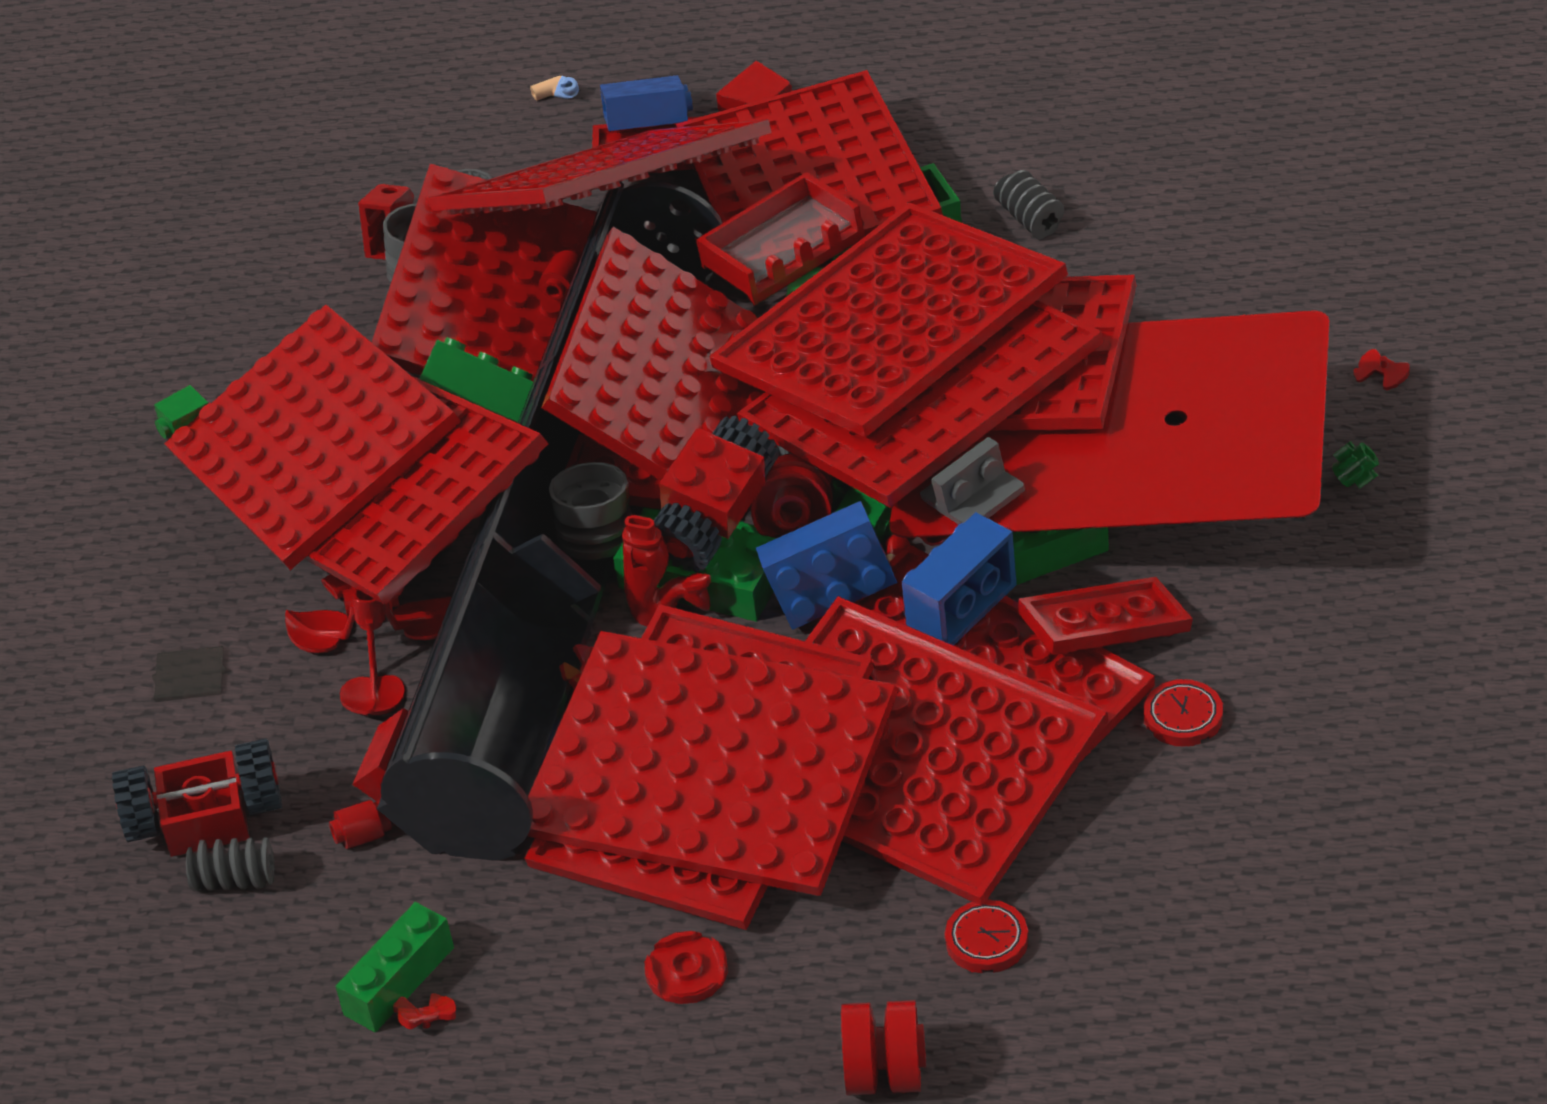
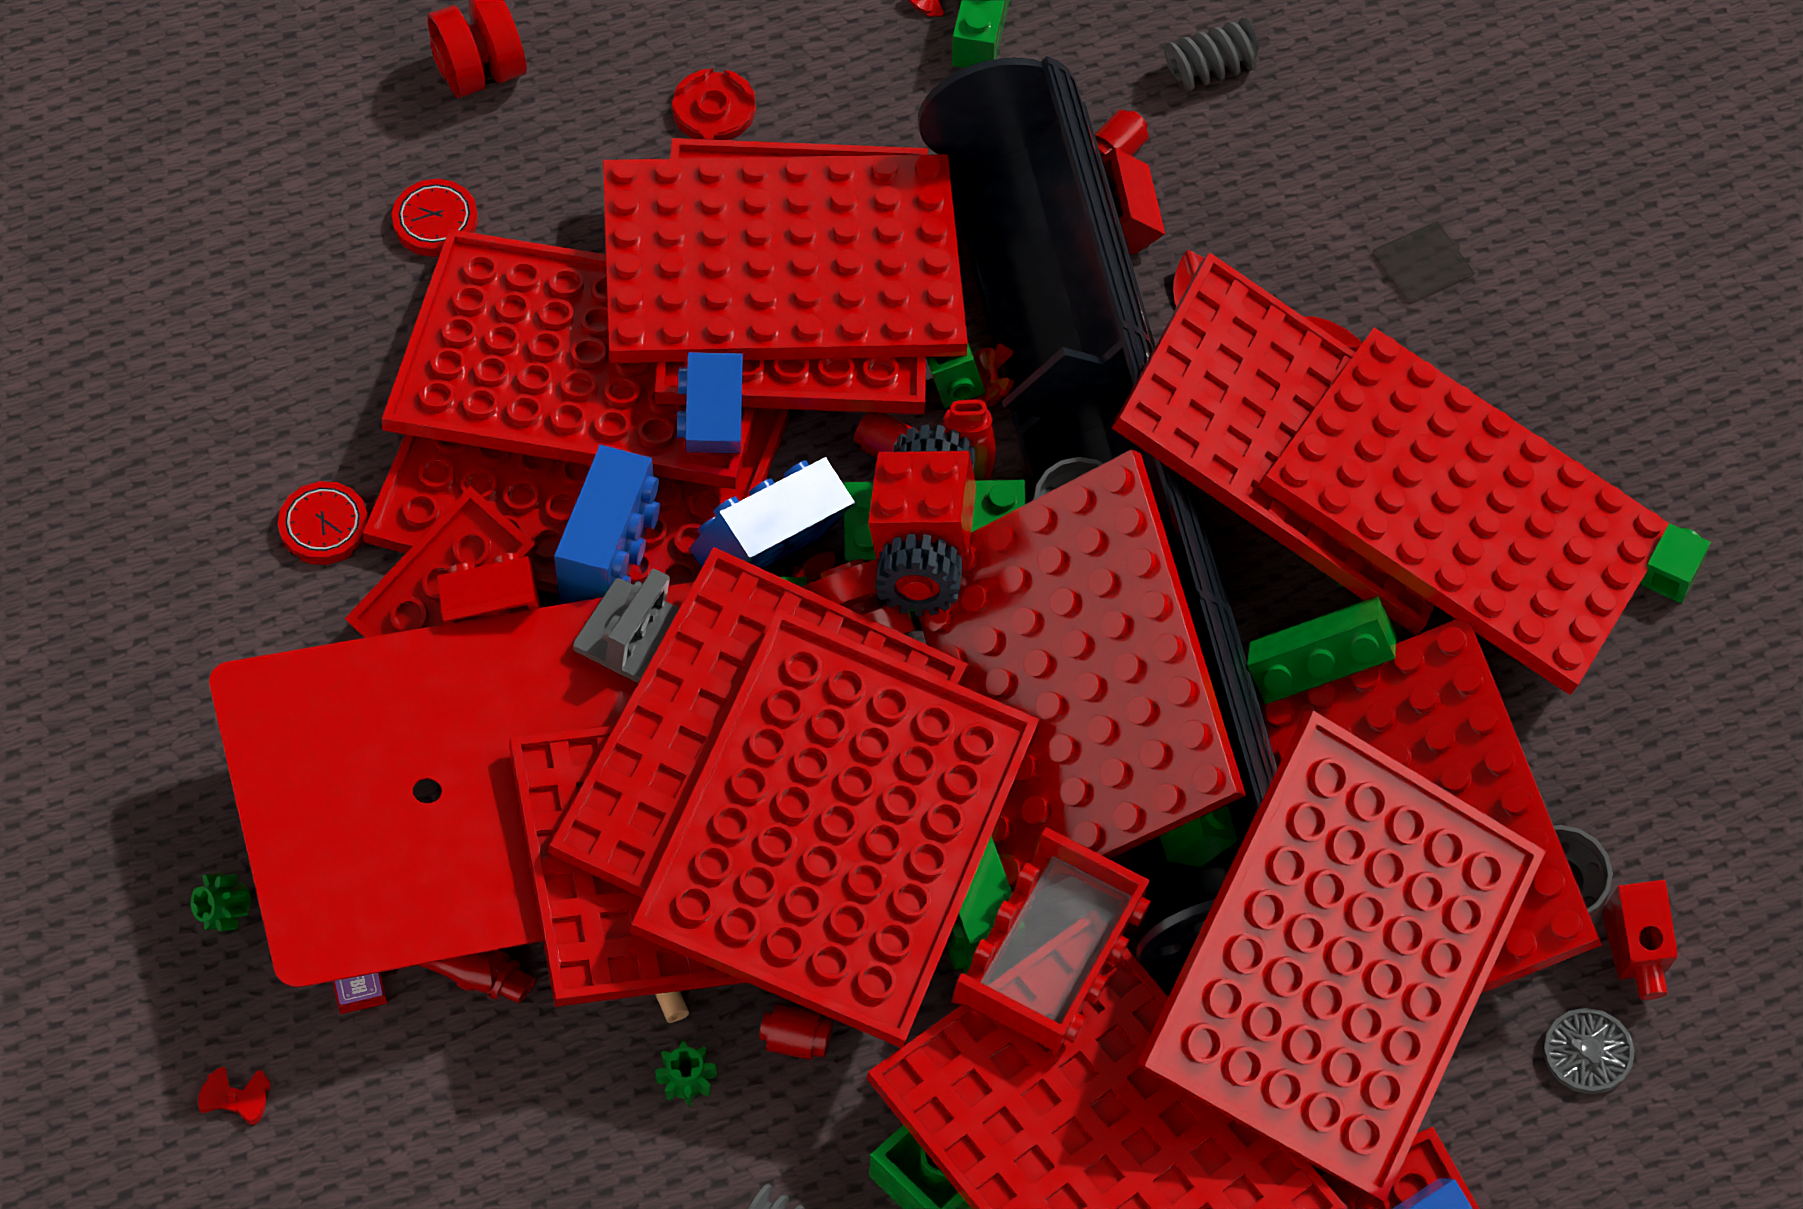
camera: 150 degrees right, 15 degrees up
(198, 797) = (1289, 89): brick -> none
(830, 622) = (713, 402): none -> blue brick
(1073, 551) = (488, 589): none -> red slope

